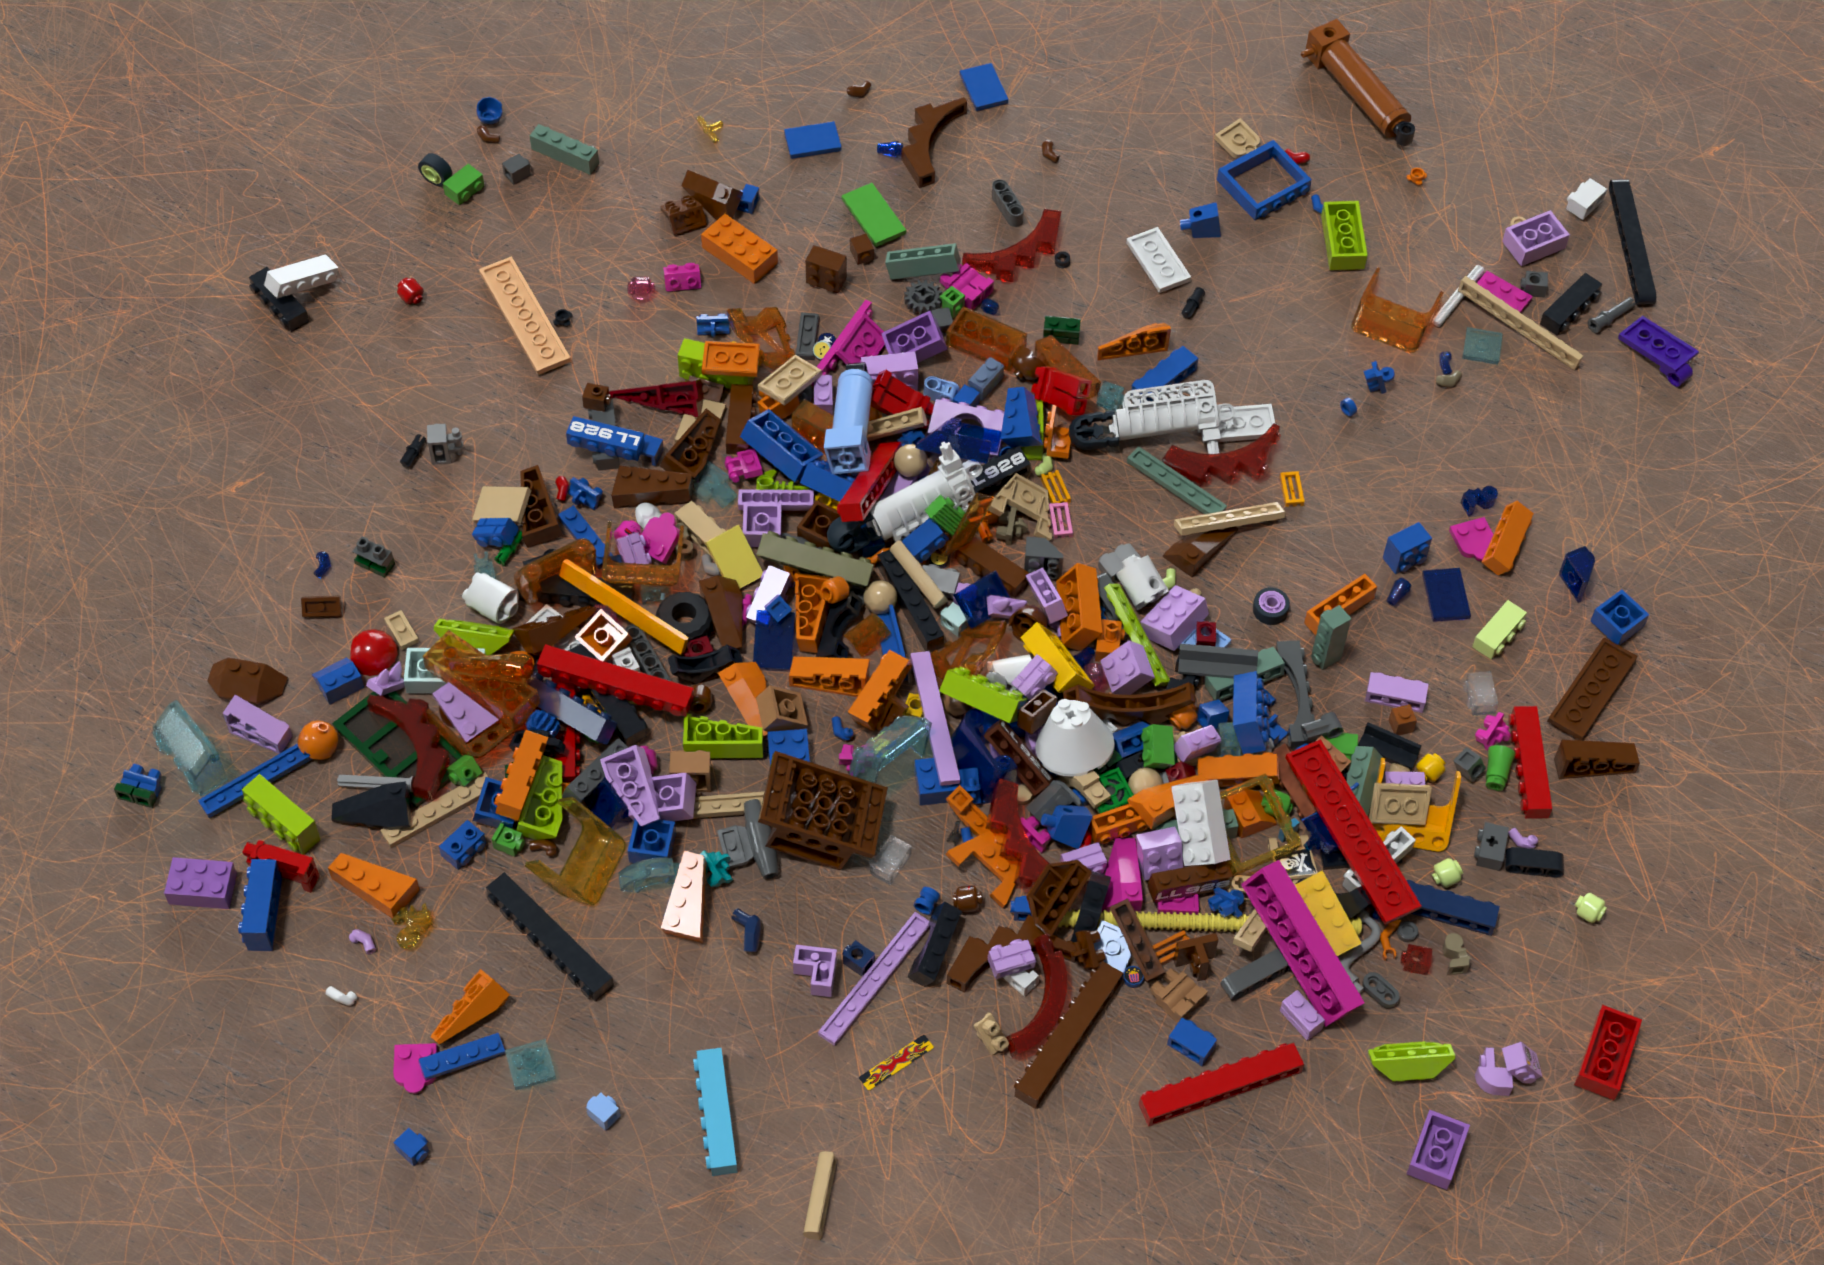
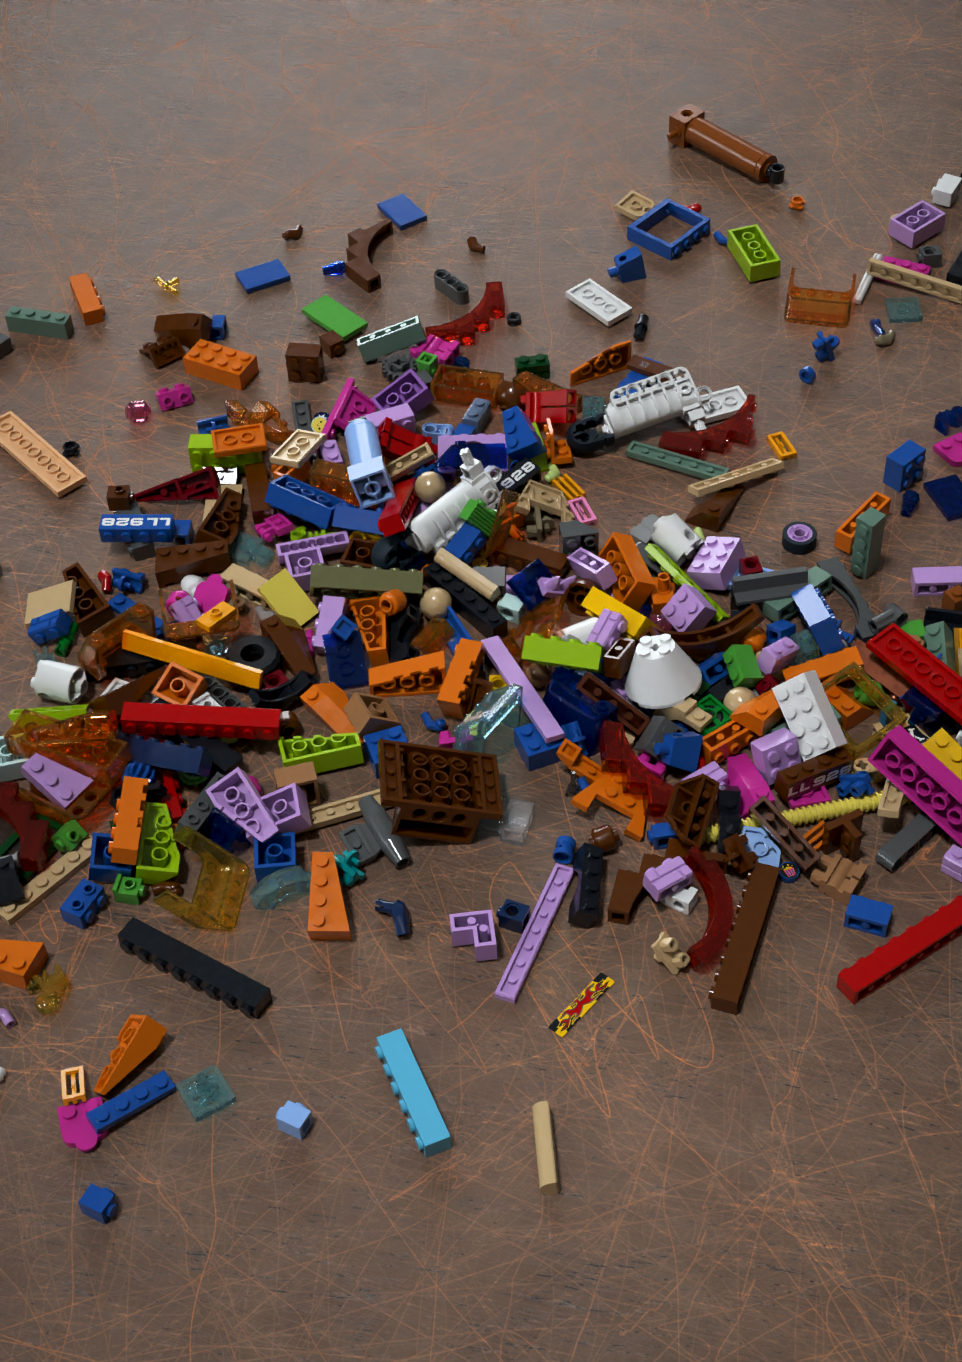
camera: 10 degrees left, 10 degrees down
(413, 1039) = (75, 1096): none -> light orange tile
(620, 131) = (87, 298): none -> orange brick
(656, 568) = (216, 616): none -> light orange plate
(1183, 364) = (647, 367): none -> reddish brown tile

